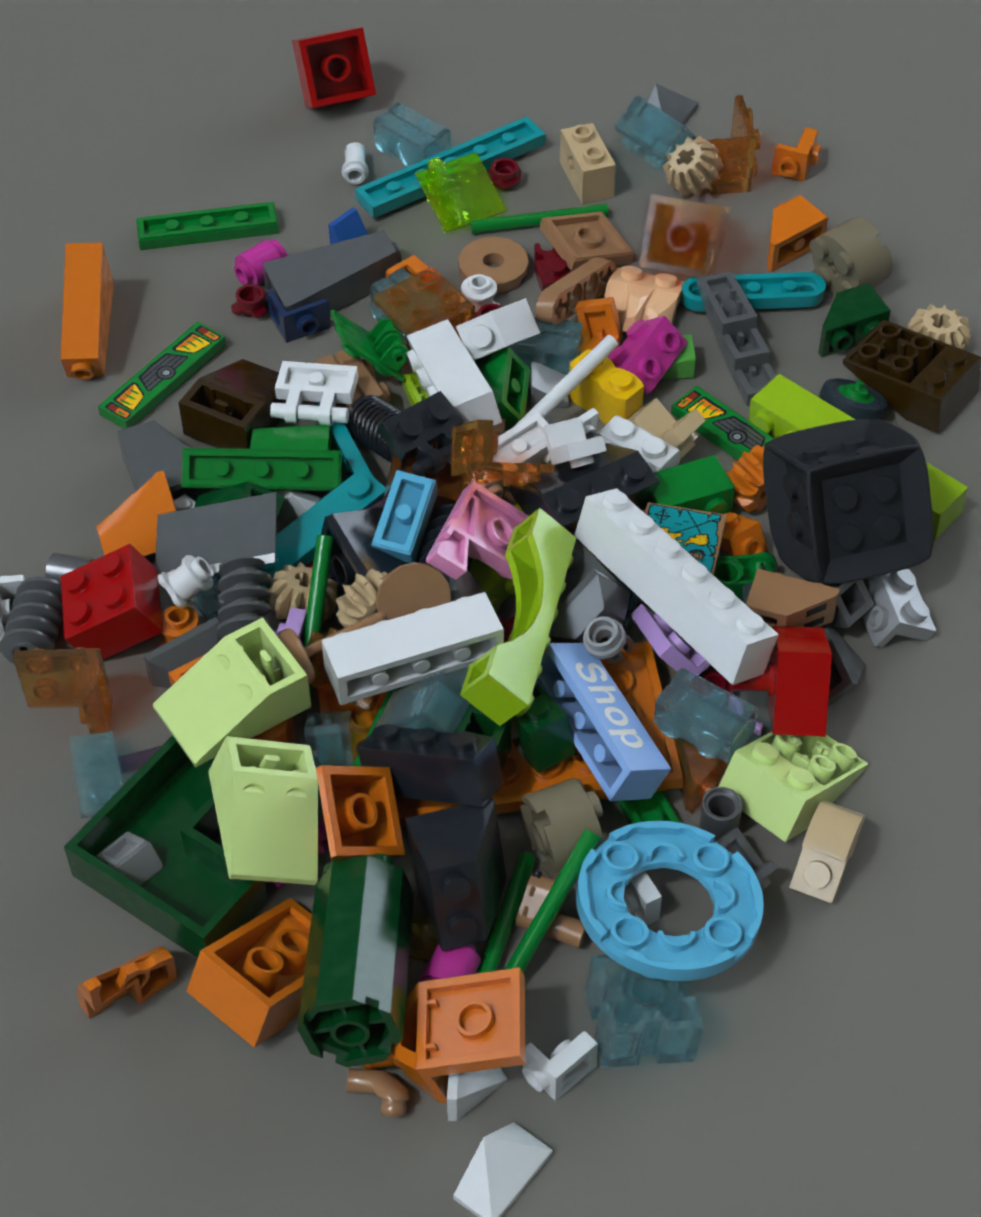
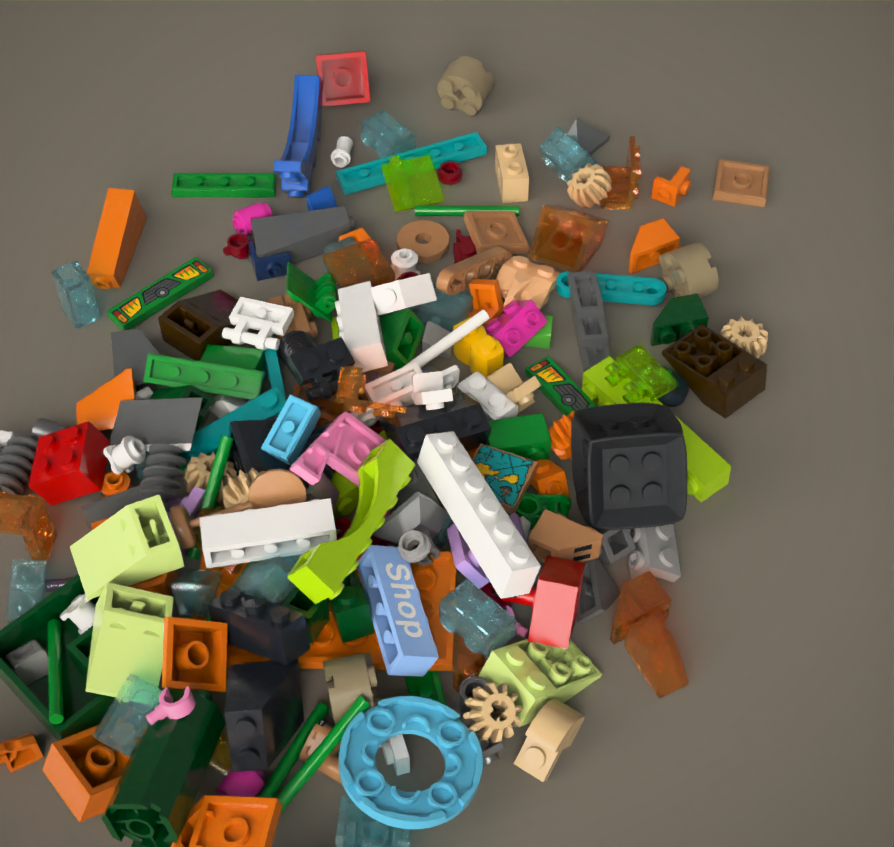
camera: 10 degrees right, 0 degrees up
(55, 388) = (76, 294): none -> clear light blue brick
(172, 865) = (55, 679): none -> green bar
(186, 788) = (80, 612): none -> white brick
(294, 898) = (126, 716): none -> clear light blue brick
(301, 148) = (304, 132): none -> blue arch
(354, 881) = (172, 710): none -> bright pink piece
(497, 58) = (465, 85): none -> dark tan brick
(755, 825) = (504, 716): none -> tan gear
(834, 389) = (645, 372): none -> clear neon green plate
(881, 141) = (741, 183): none -> medium nougat tile
(895, 674) = (637, 601): none -> clear orange slope
(932, 729) = (656, 655): none -> clear orange slope

